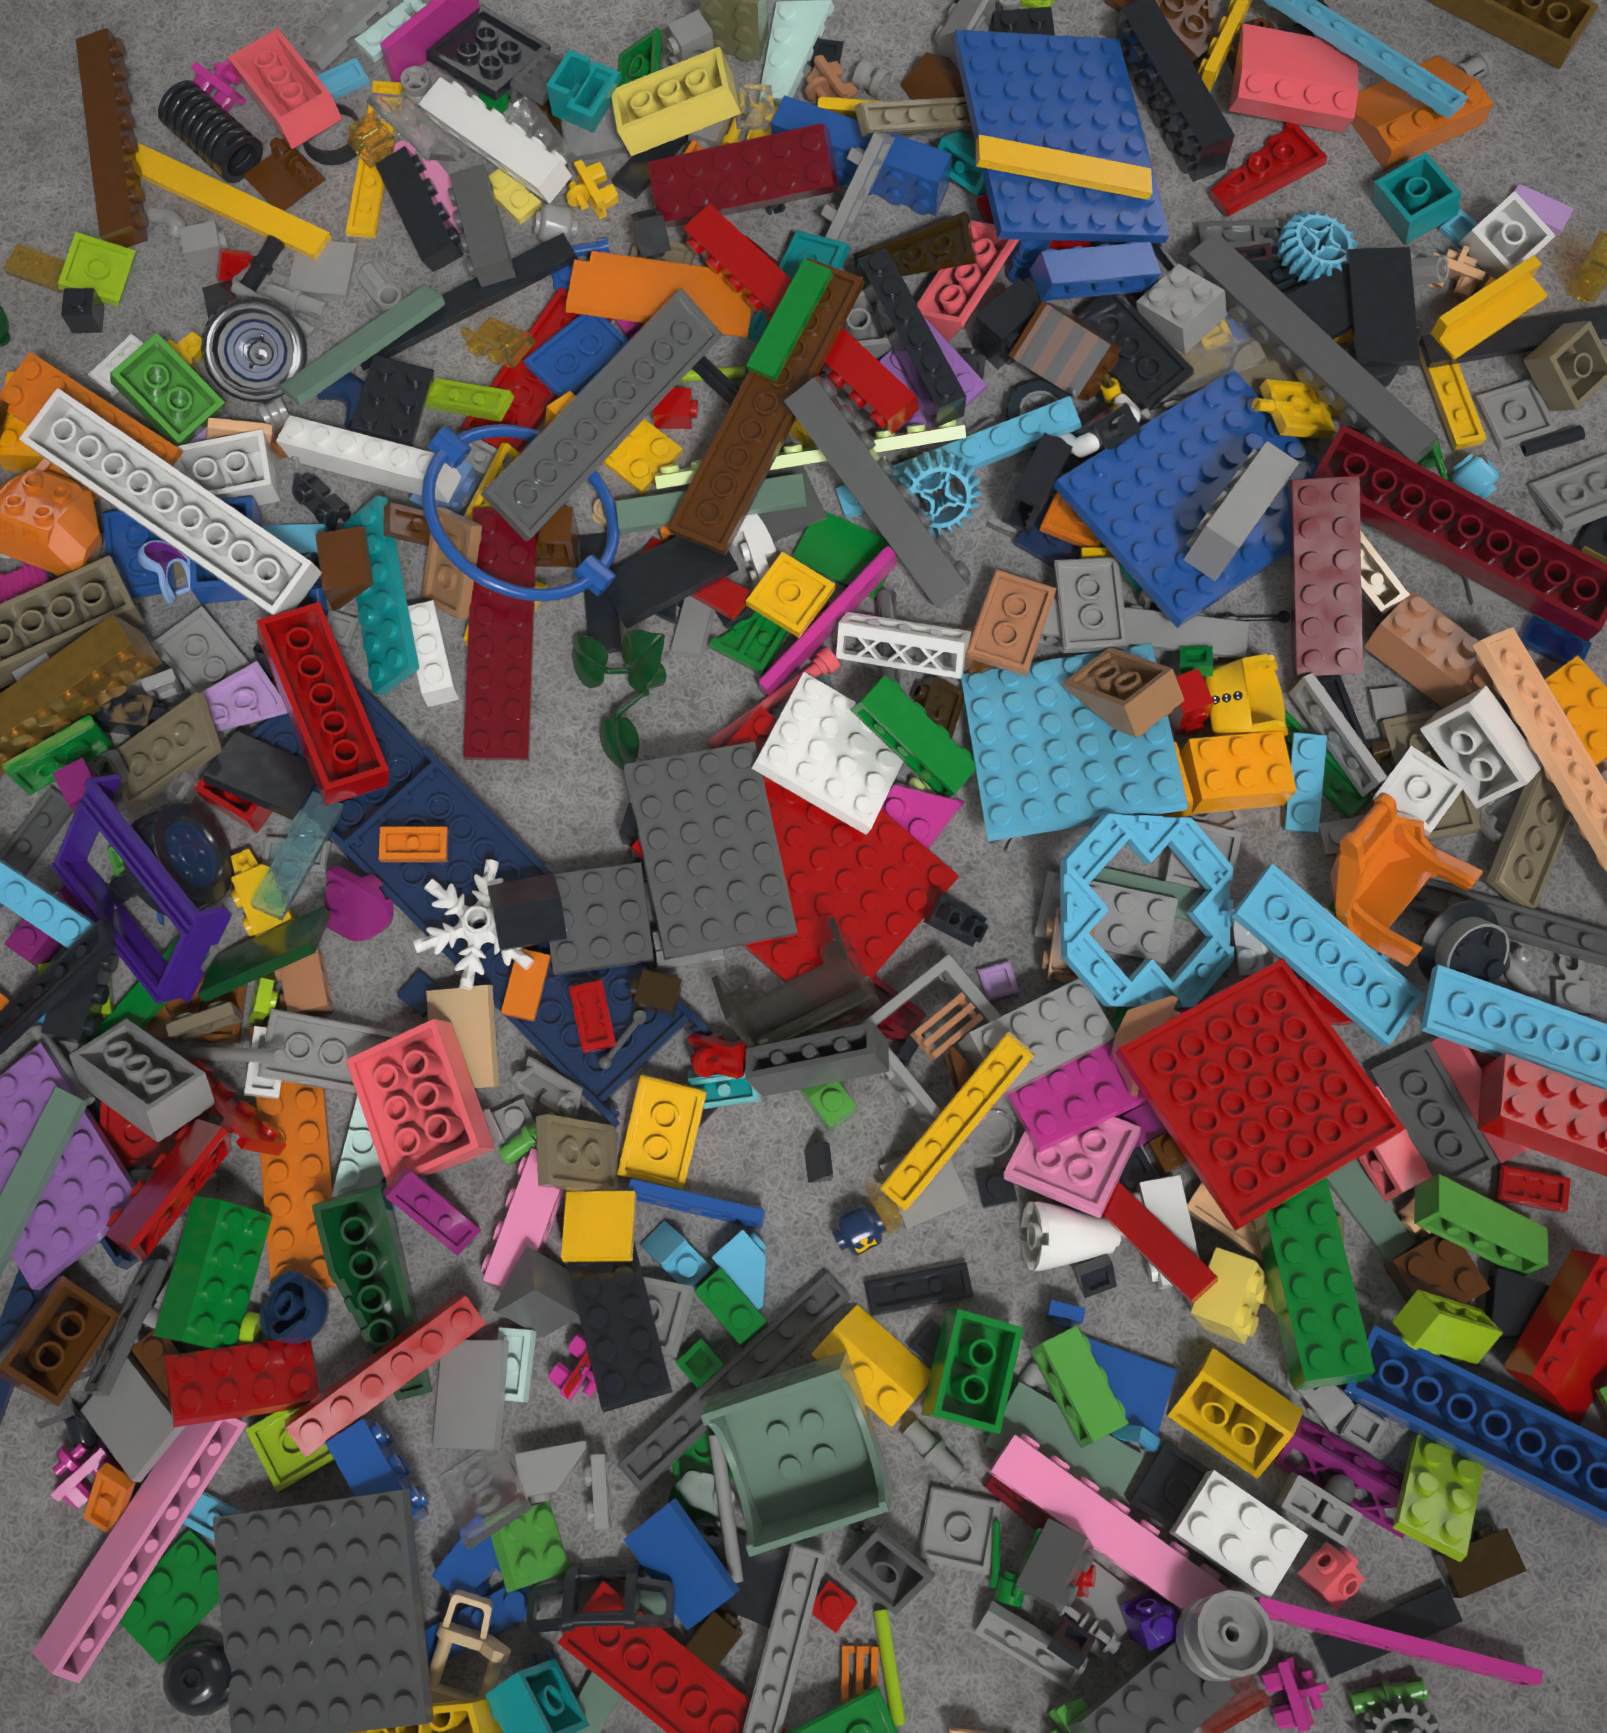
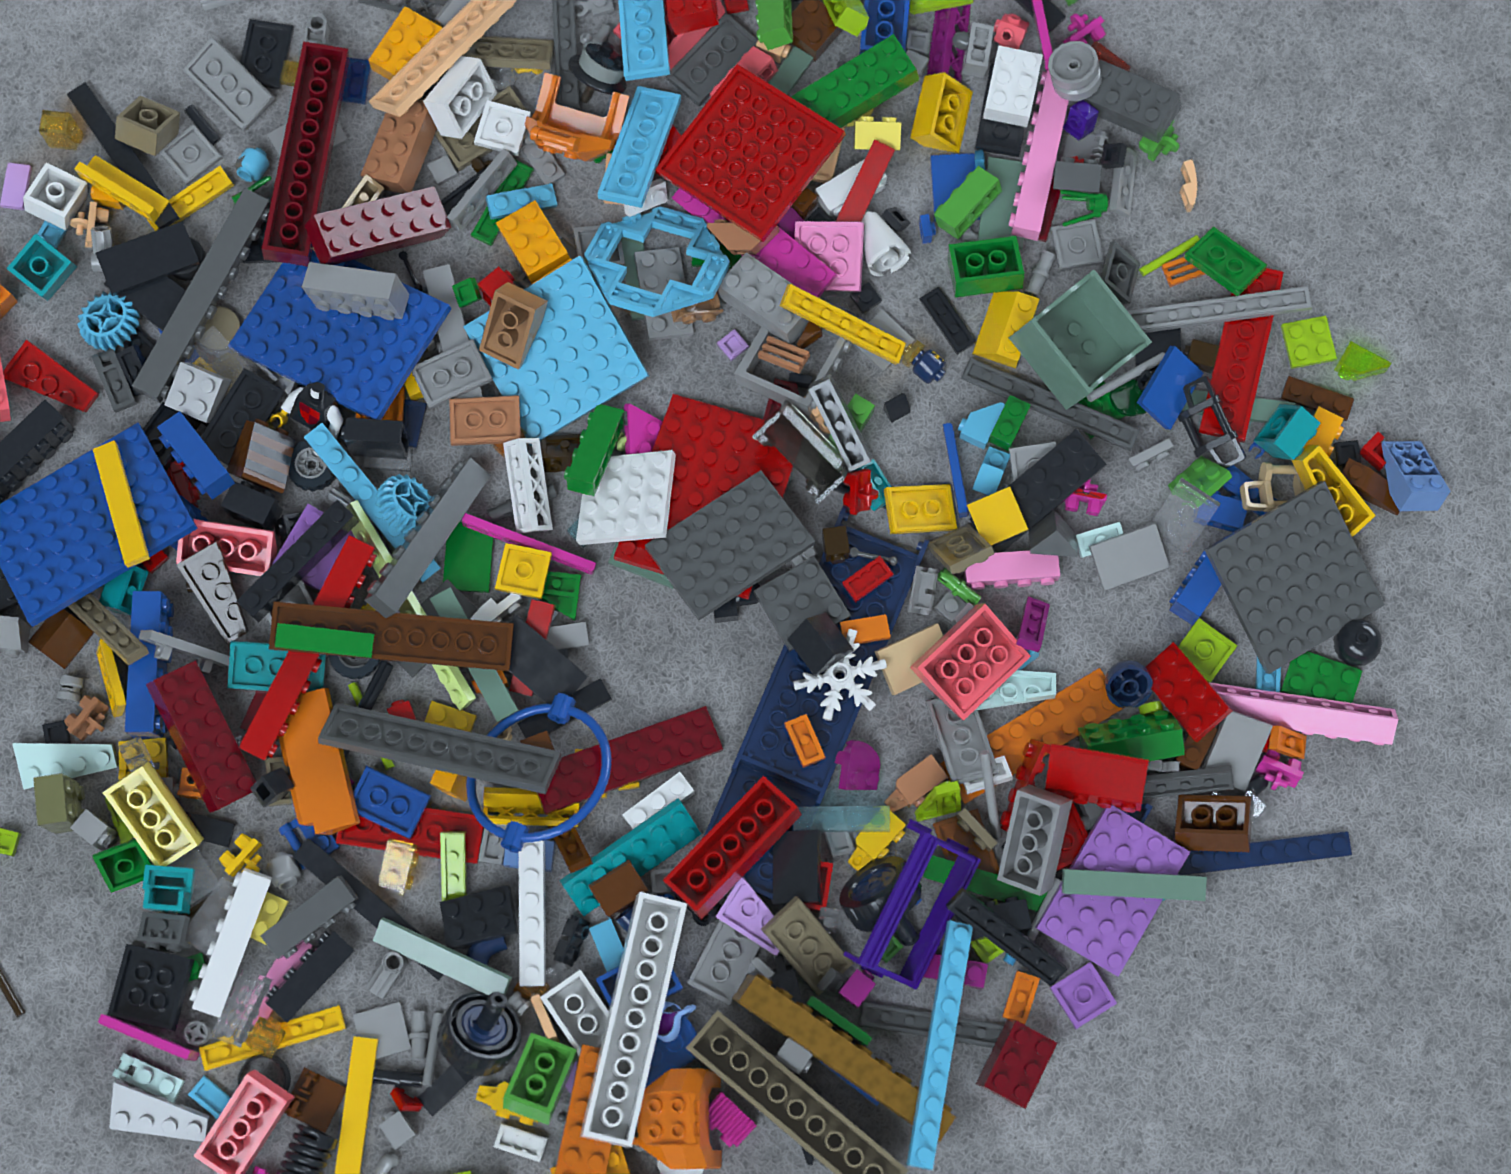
camera: 115 degrees left, 5 degrees up
(265, 954) = (916, 800): dark green tile -> none
(370, 1269) = (1089, 643): dark green wedge -> none
(383, 1373) = (1141, 606): brick -> none
(415, 993) = (895, 704): dark blue tile -> none
(442, 579) = (602, 820): medium nougat plate -> none
(548, 1469) = (1149, 490): light grey slope -> none
(643, 655) = (615, 645): dark green plant -> none
(699, 1363) = (1049, 429): green plate -> none
(823, 663) = (558, 538): coral piece -> none
(833, 1606) = (1151, 297): red plate -> none
(926, 1342) = (977, 303): black tile -> none
(956, 920) = (706, 380): black hips -> none
(1247, 697) = (481, 252): yellow piece -> none
(1296, 409) = (247, 293): yellow plate -> none

